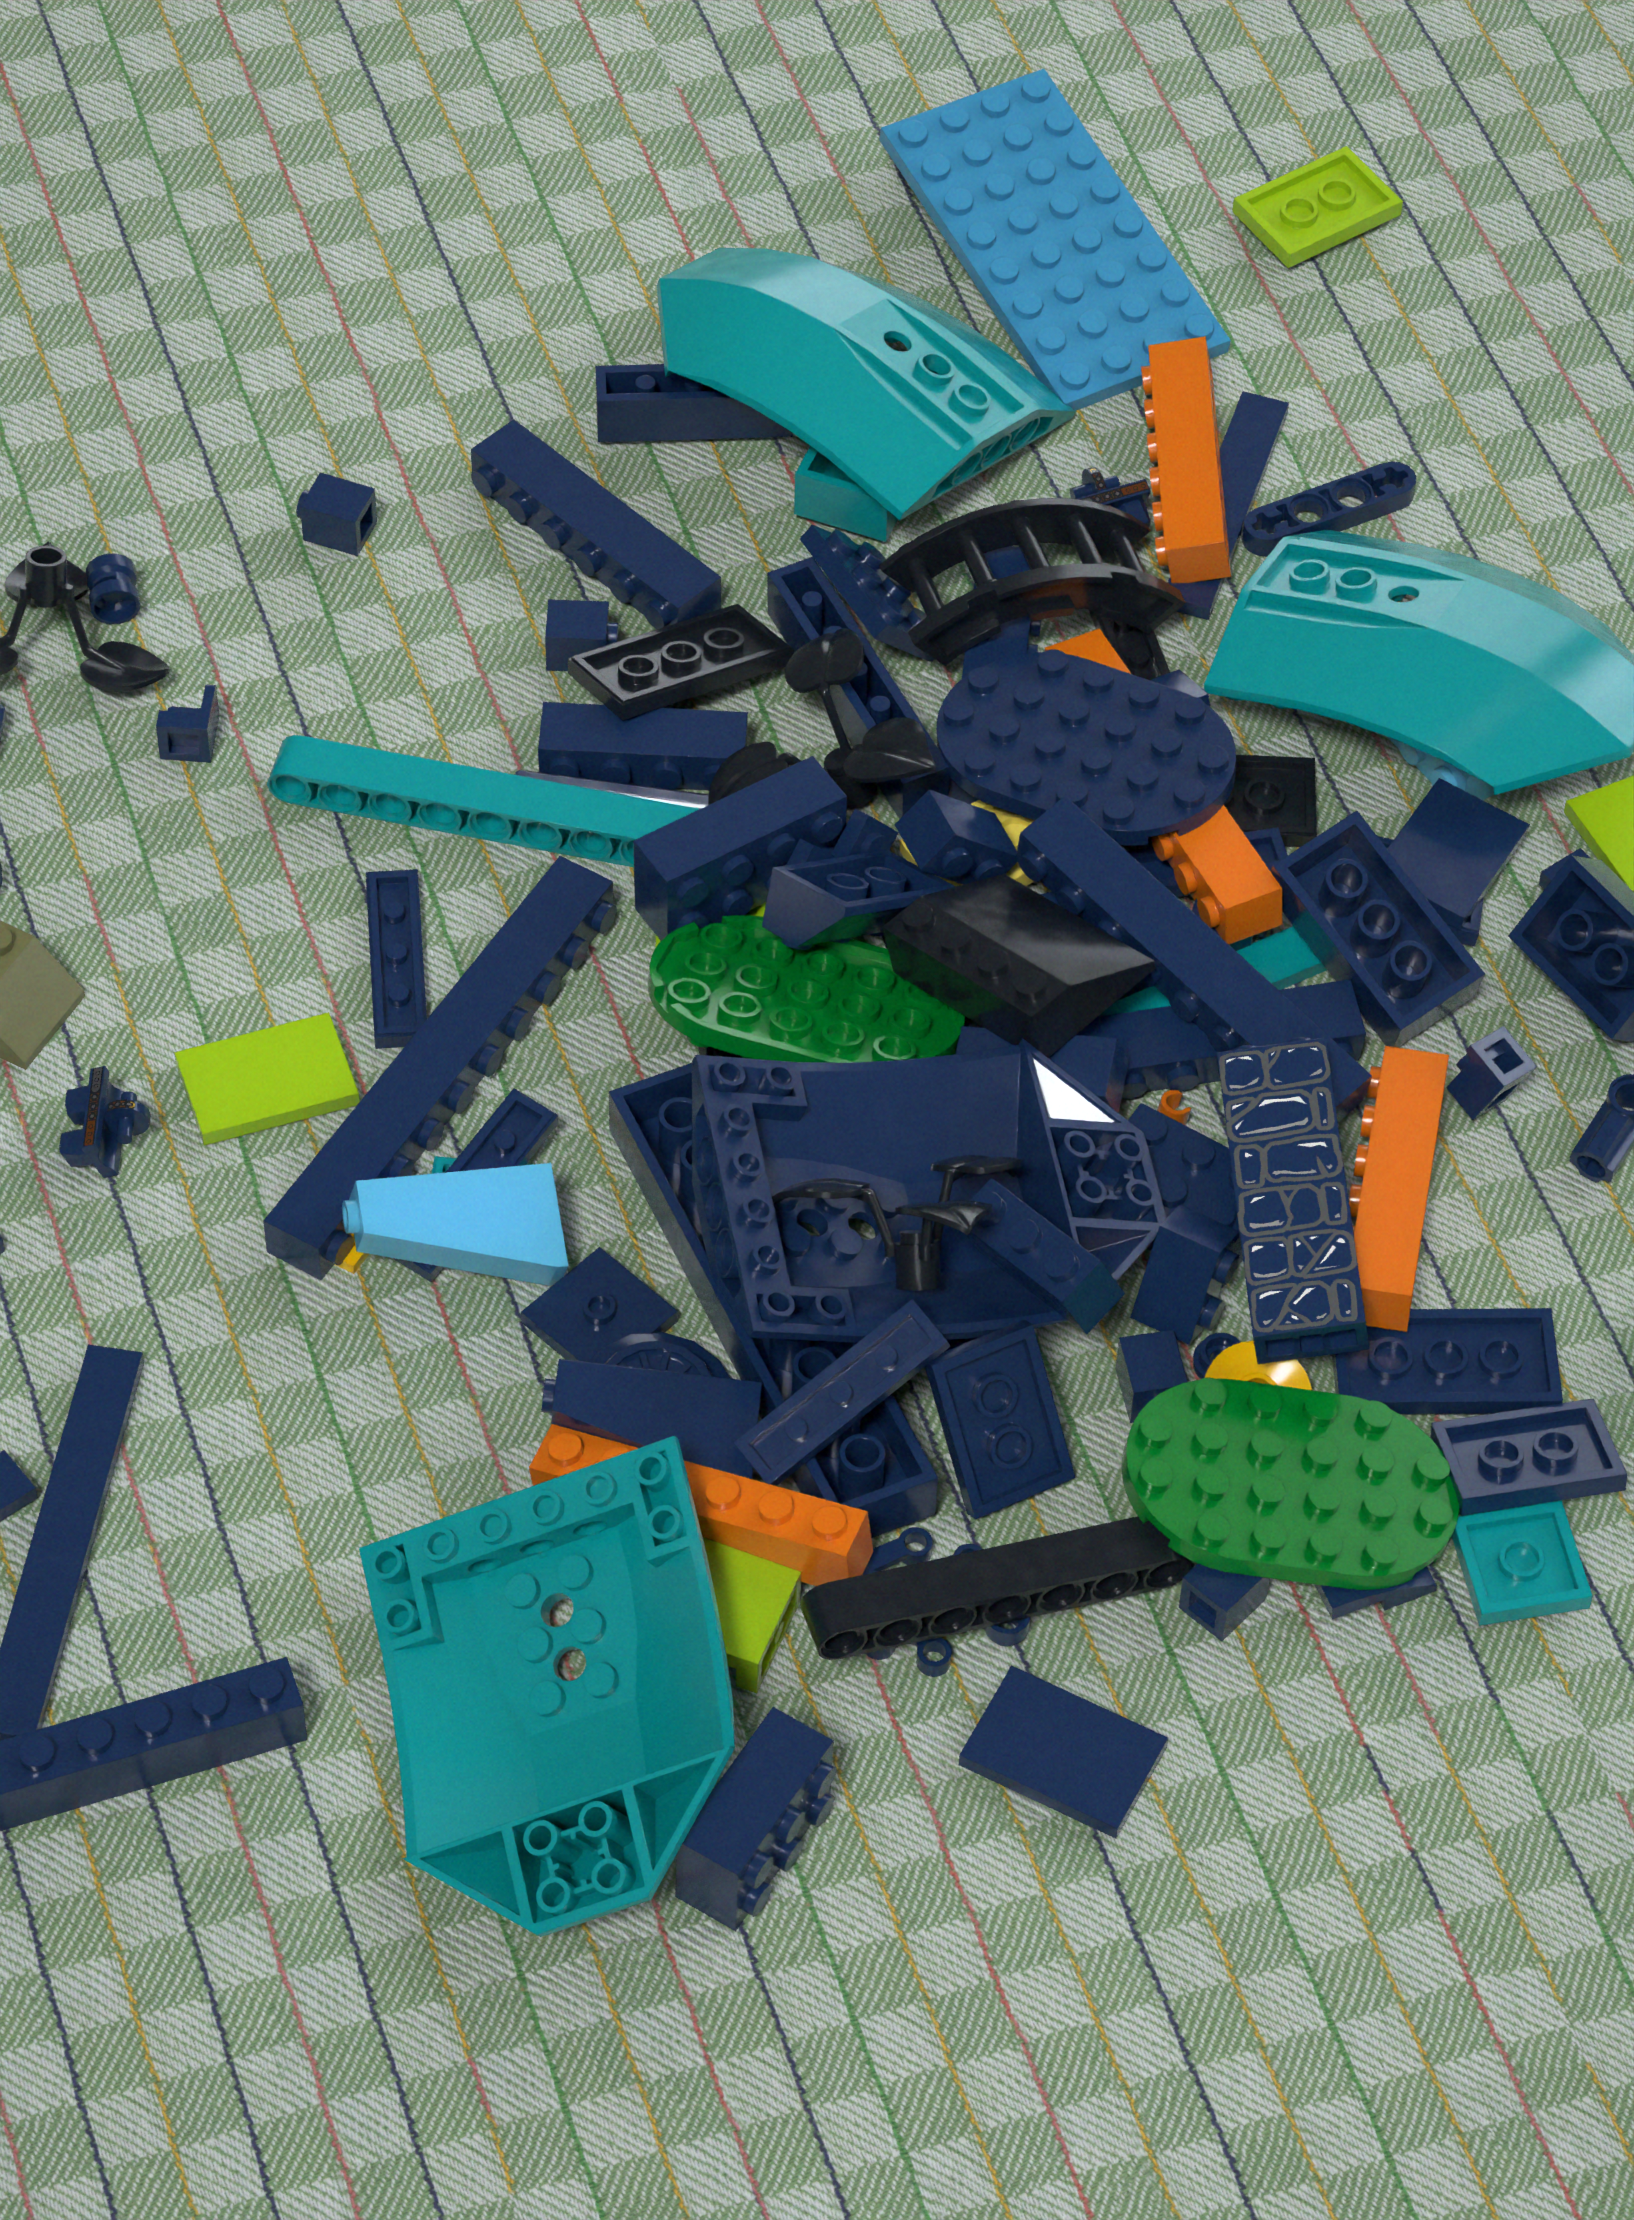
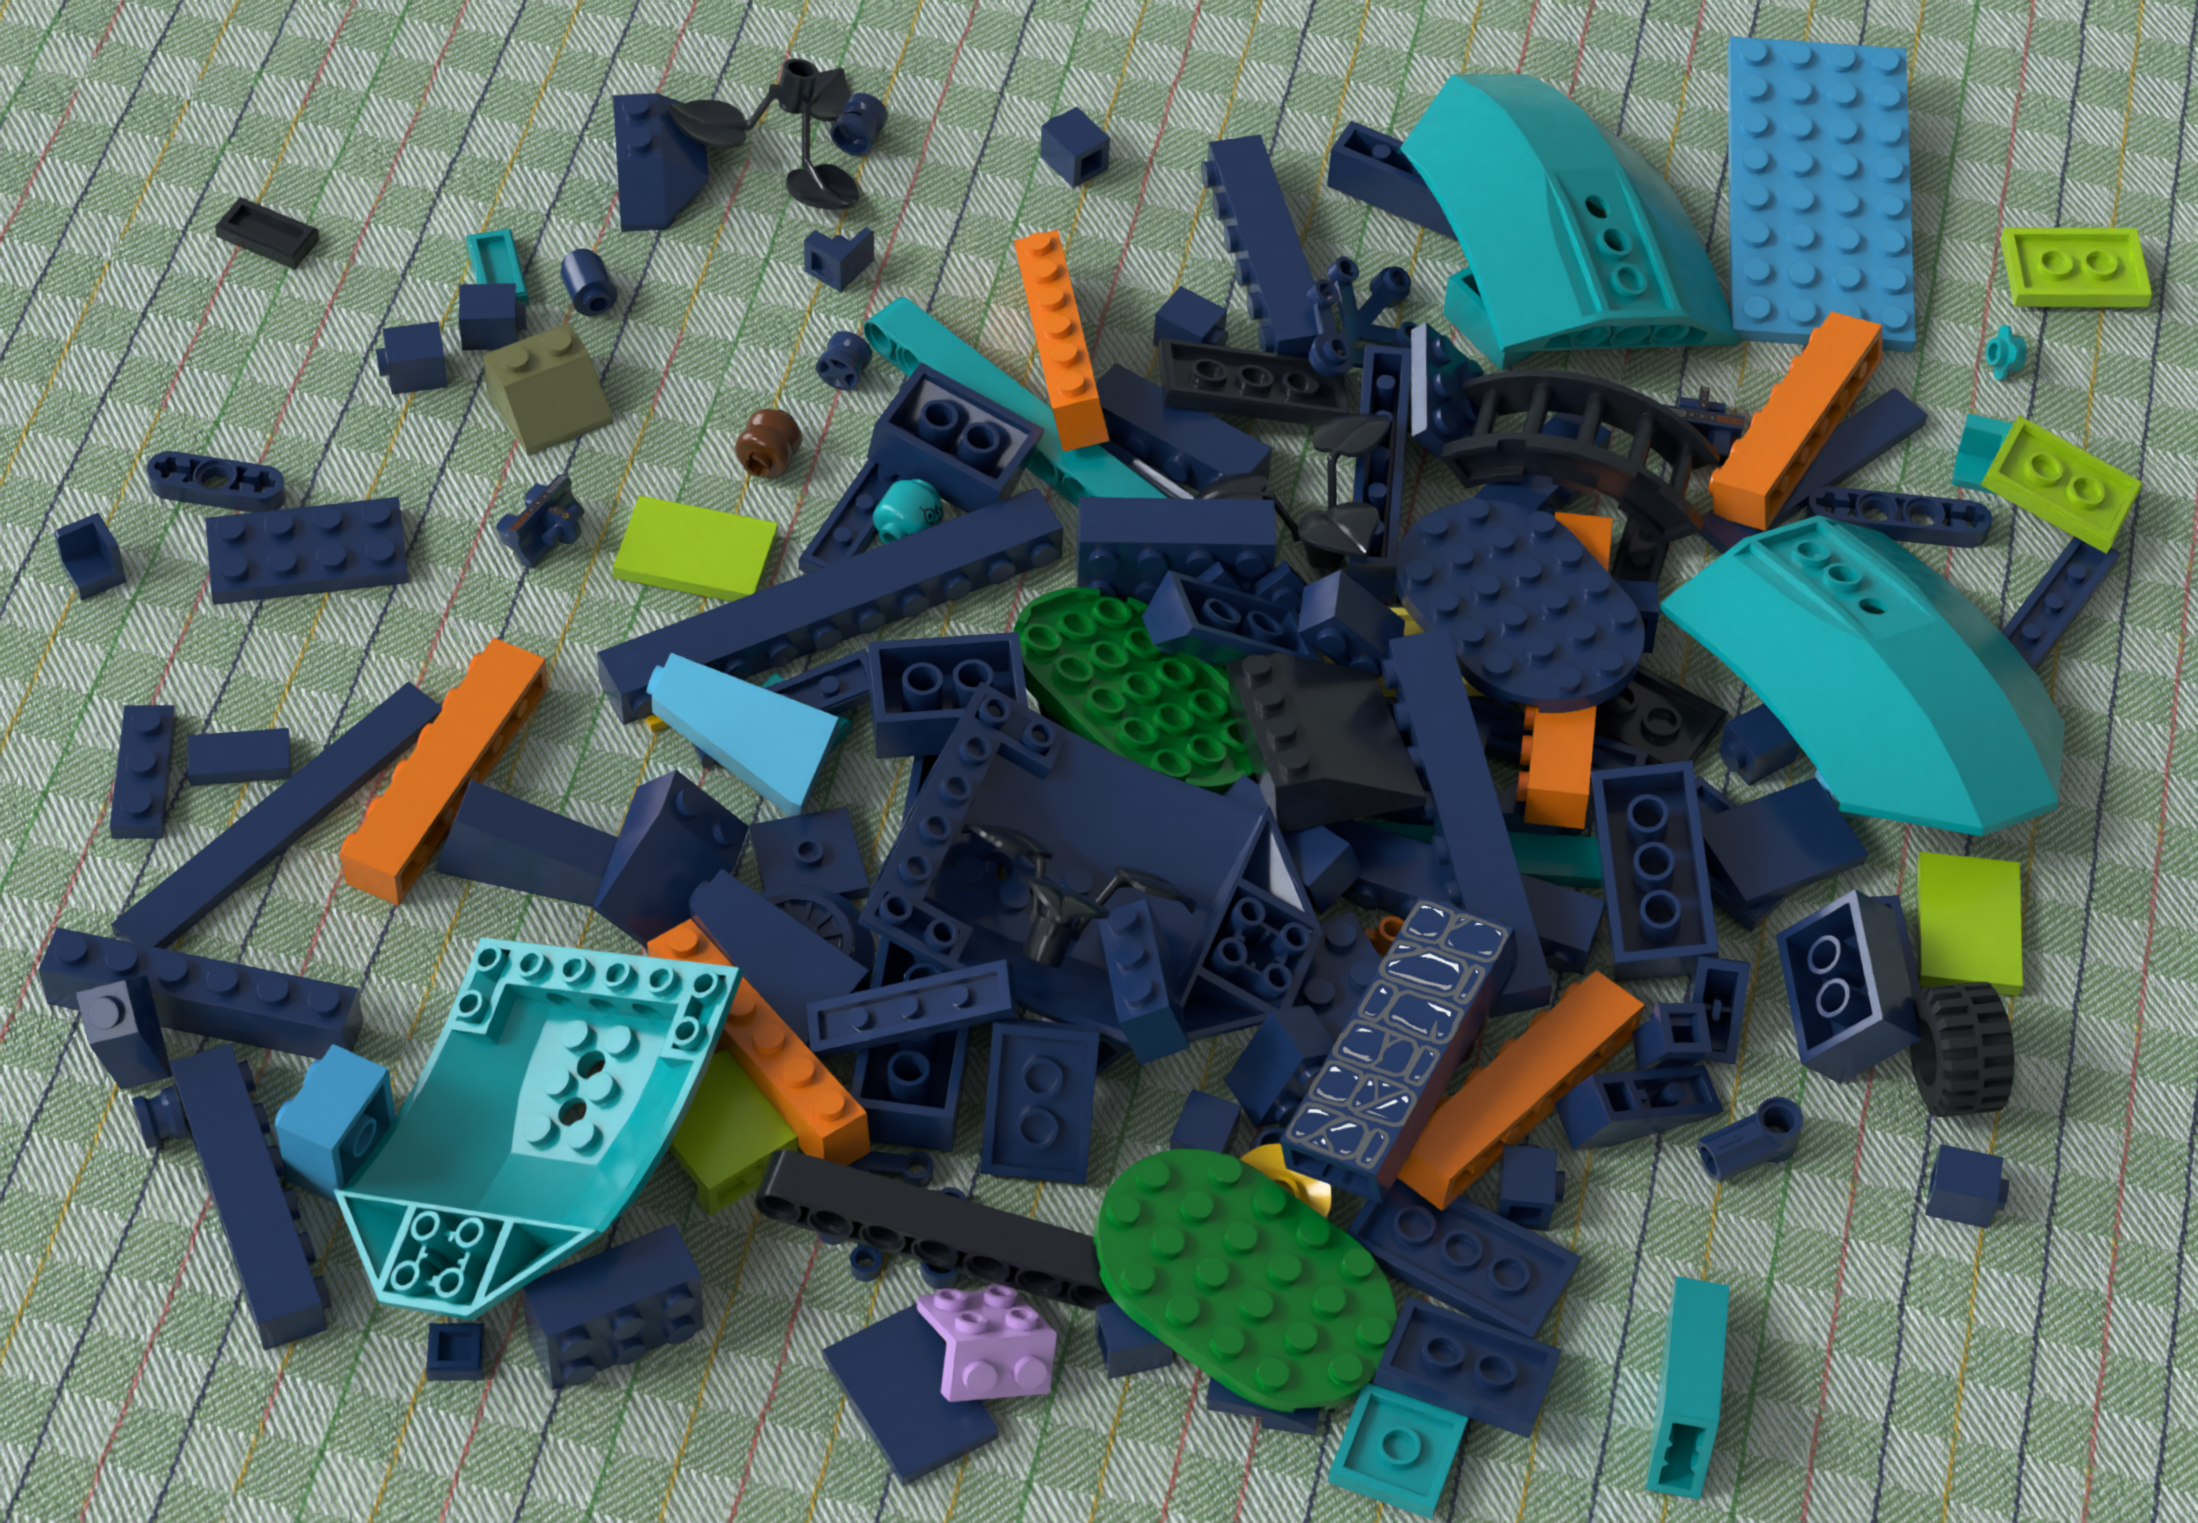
camera: 30 degrees right, 0 degrees up
(89, 1818) = (125, 1031): none -> dark blue slope
(175, 1885) = (159, 1117): none -> dark blue wheel
(193, 1412) = (428, 788): none -> orange brick
(264, 939) = (768, 443): none -> reddish brown piece
(274, 825) = (844, 360): none -> dark blue wheel
(320, 1910) = (249, 1198): none -> dark blue brick
(344, 1440) = (525, 848): none -> dark blue slope
(359, 1796) = (334, 1121): none -> dark azure brick
(450, 940) = (907, 509): none -> teal head
(451, 851) = (953, 440): none -> dark blue slope
(482, 704) = (1061, 341): none -> orange brick
(486, 1379) = (663, 853): none -> dark blue slope
(622, 1946) = (455, 1351): none -> dark blue tile
(635, 1089) = (927, 682): none -> dark blue brick
(733, 594) = (1332, 351): none -> dark blue plant
(1122, 1657) = (993, 1343): none -> lavender bracket
(1315, 313) = (2006, 352): none -> teal plate
(1362, 415) = (1977, 449): none -> teal panel
(1364, 771) = (1757, 745): none -> dark blue brick
(1456, 409) = (2062, 484): none -> lime tile
(1459, 1269) = (1529, 1185): none -> dark blue brick
(1496, 1151) = (1636, 1104): none -> dark blue slope
(1497, 1004) = (1722, 988): none -> dark blue slope
(1518, 511) = (2058, 600): none -> dark blue plate

